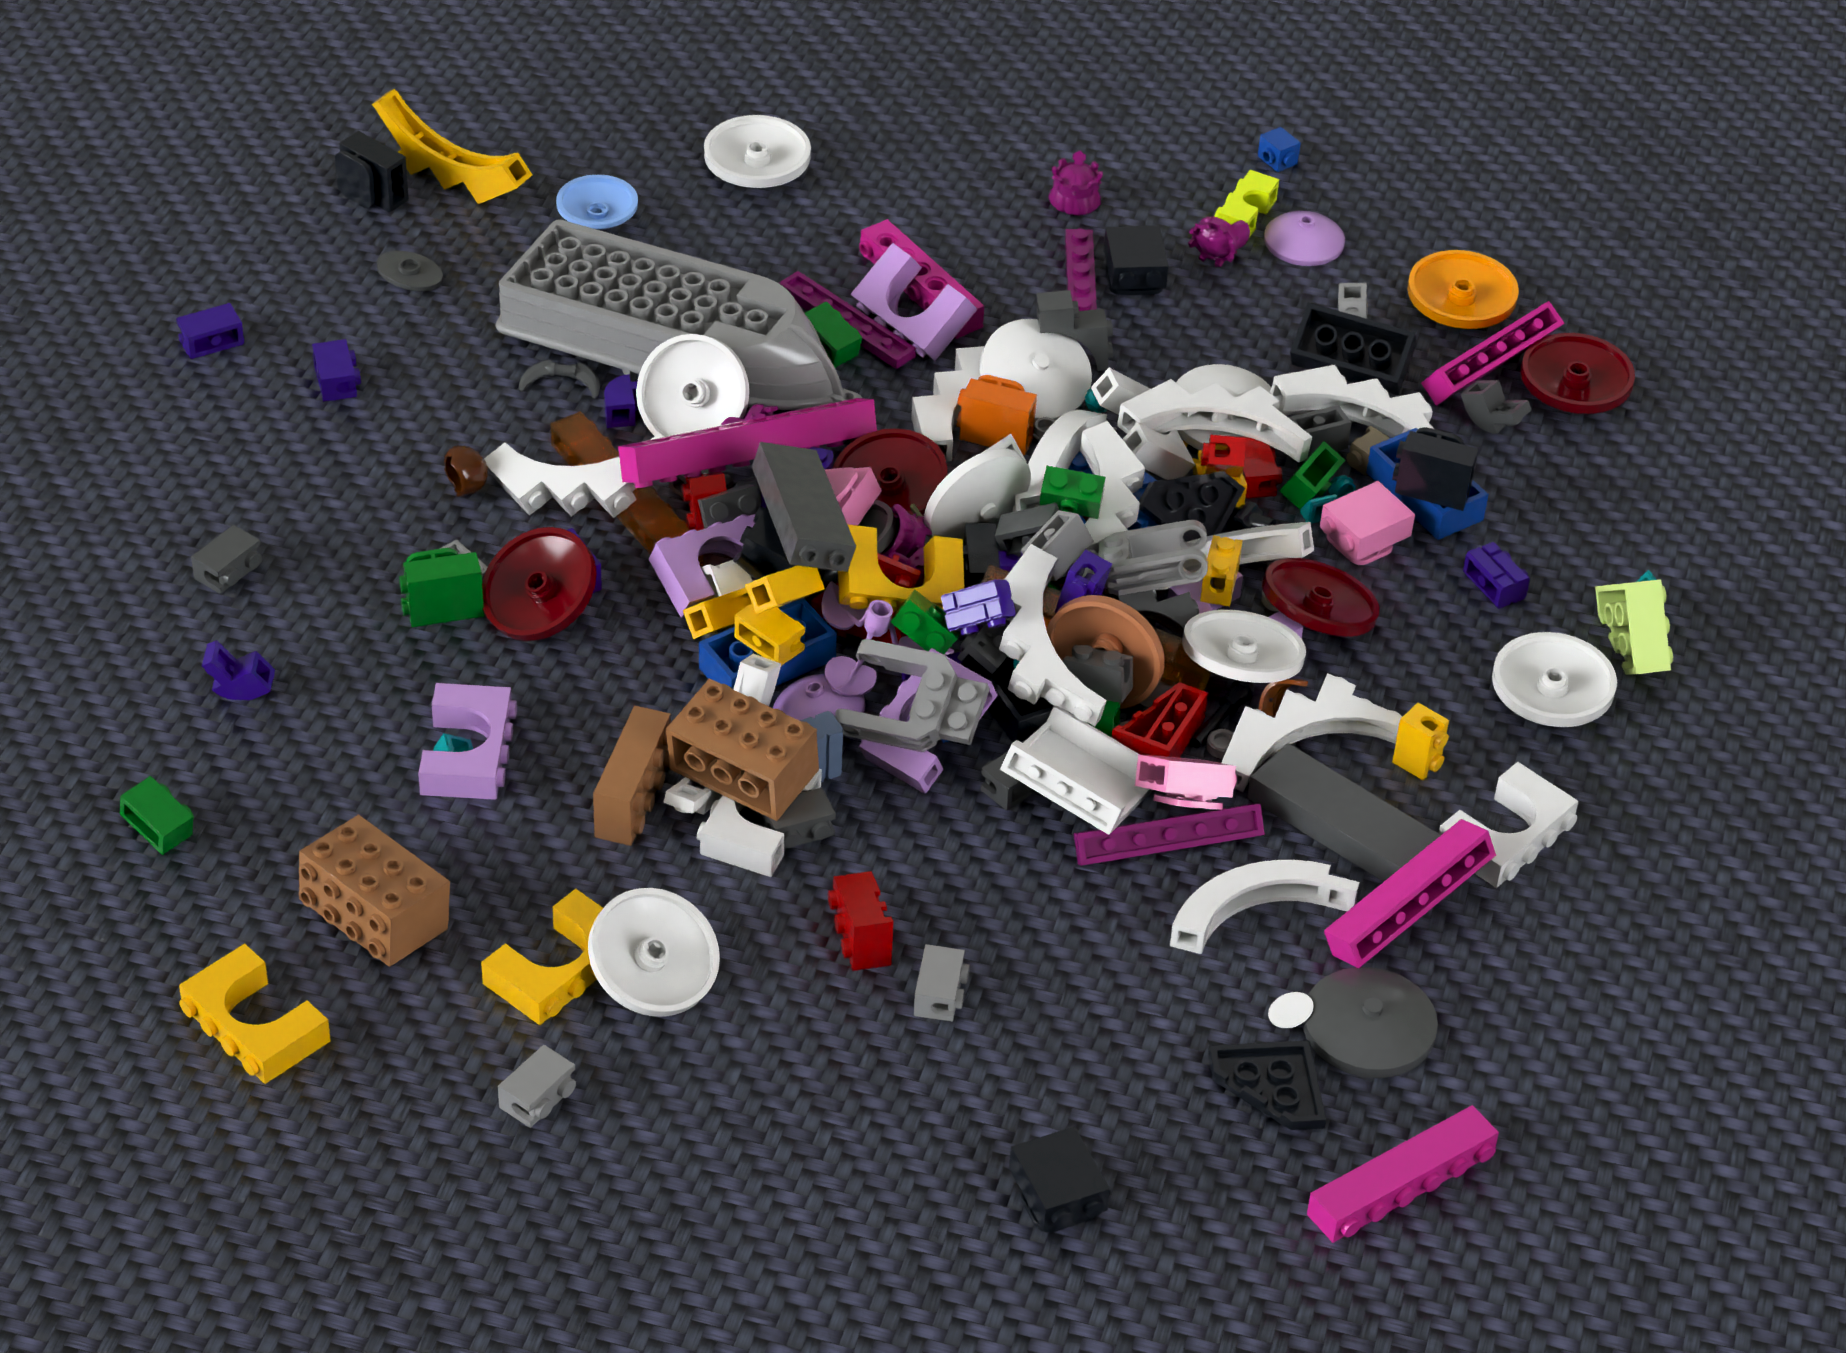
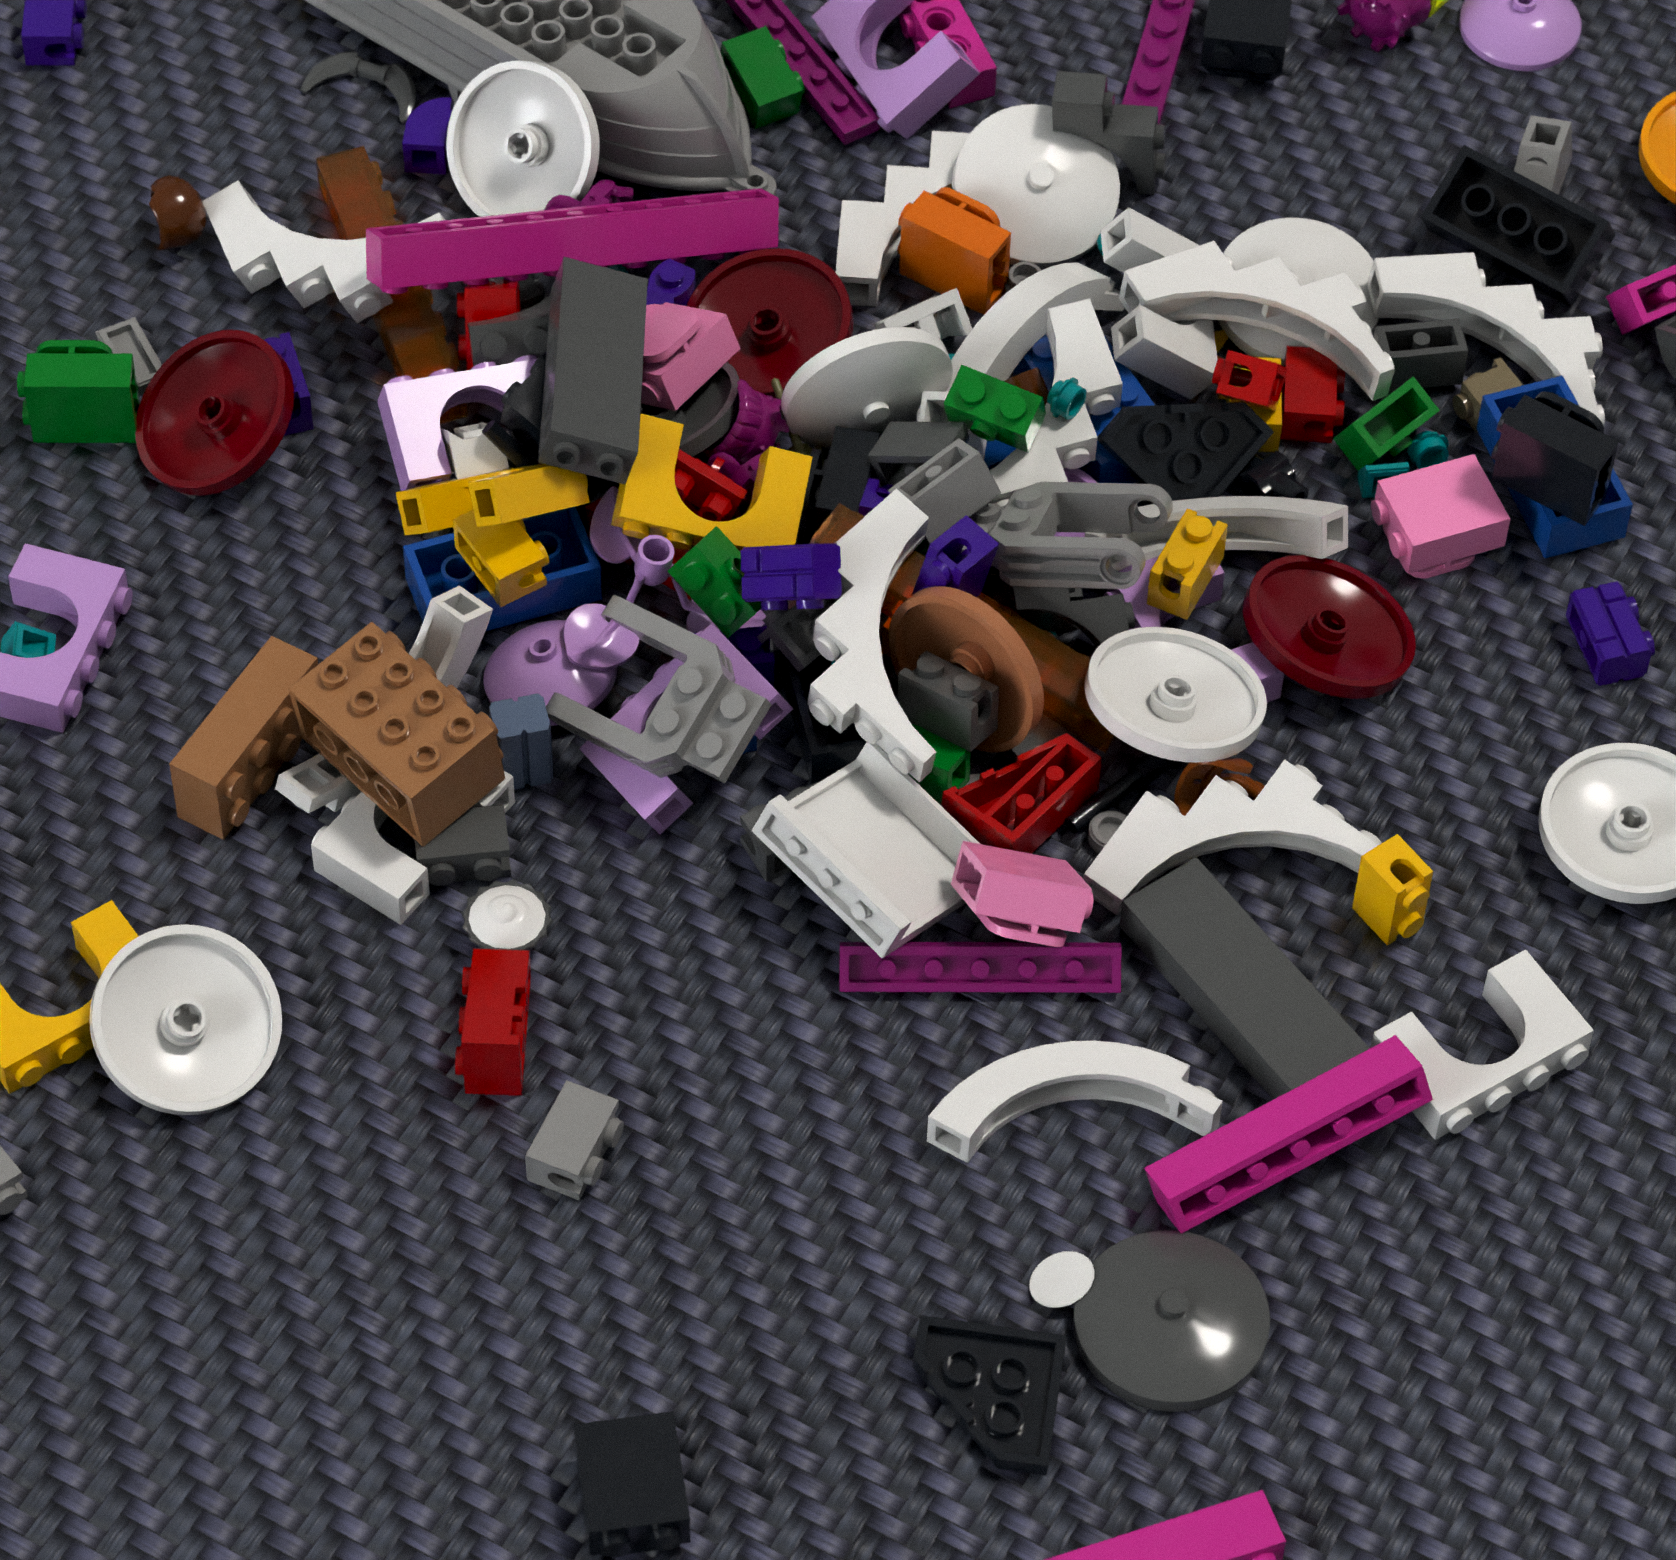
camera: 15 degrees right, 10 degrees up
(846, 855) = (507, 916): none -> white piece
(1115, 480) = (1066, 398): none -> teal plate

